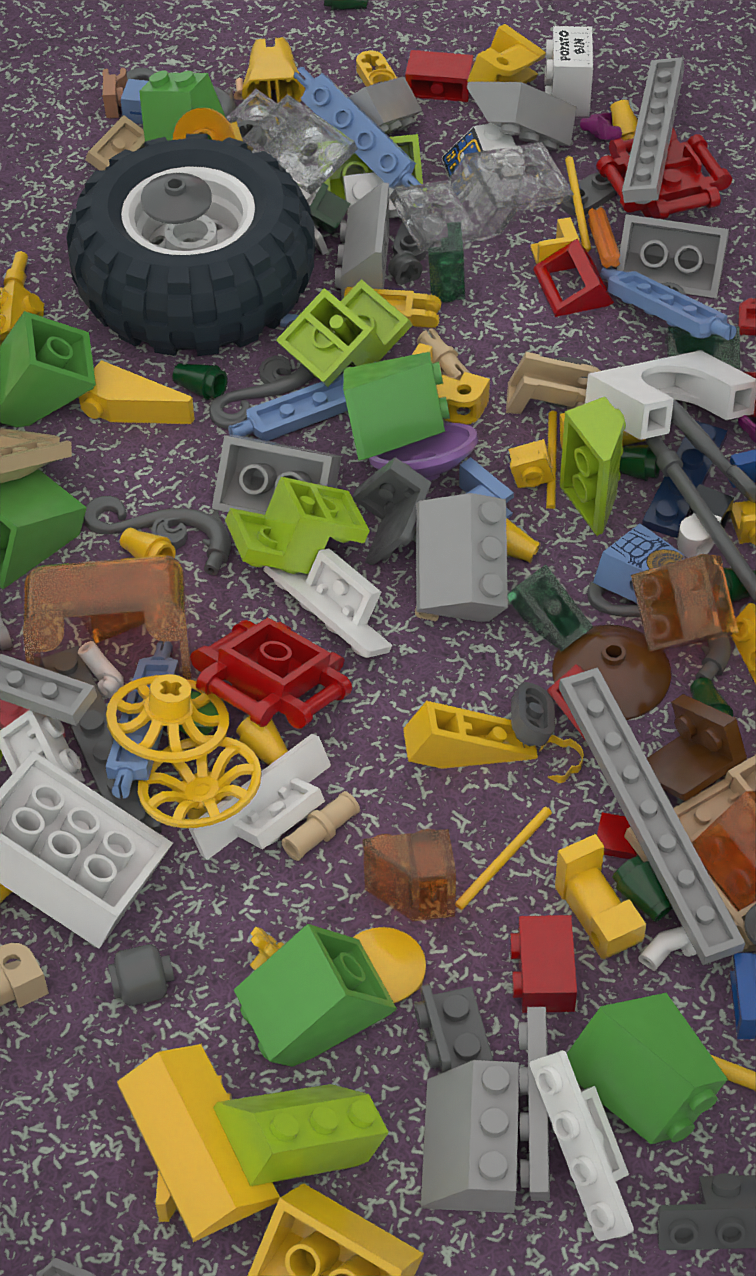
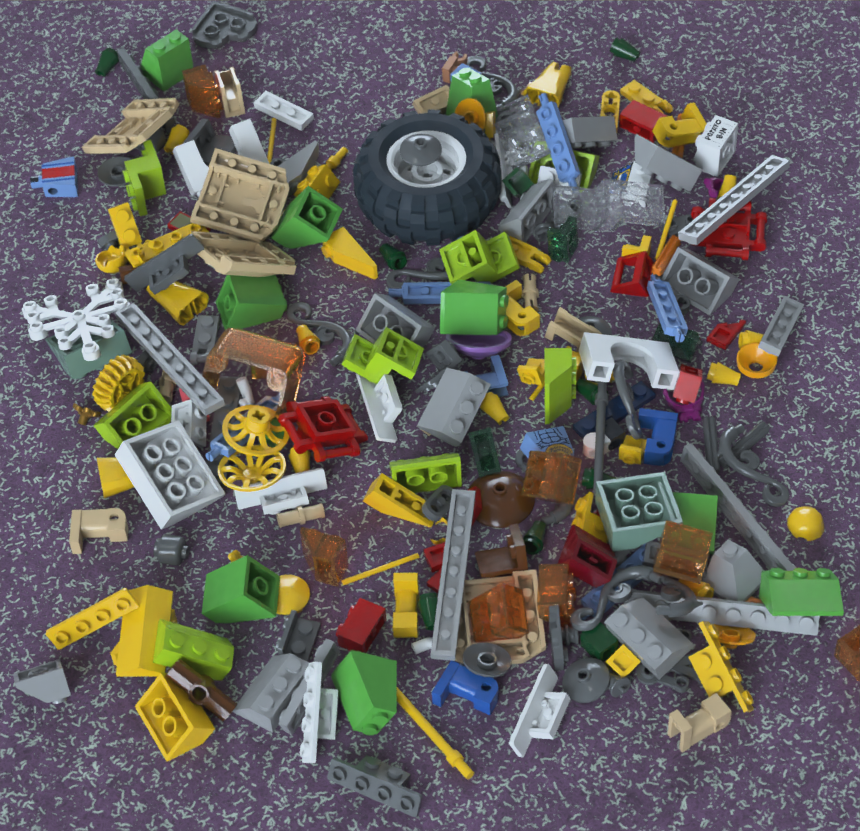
camera: 30 degrees right, 0 degrees up
(85, 1156) = (92, 618): none -> yellow bracket
(337, 1187) = (189, 680): none -> reddish brown piece
(399, 44) = (641, 94): none -> yellow hinge
(485, 672) = (428, 473): none -> lime slope
(585, 799) = (434, 556): none -> red plate

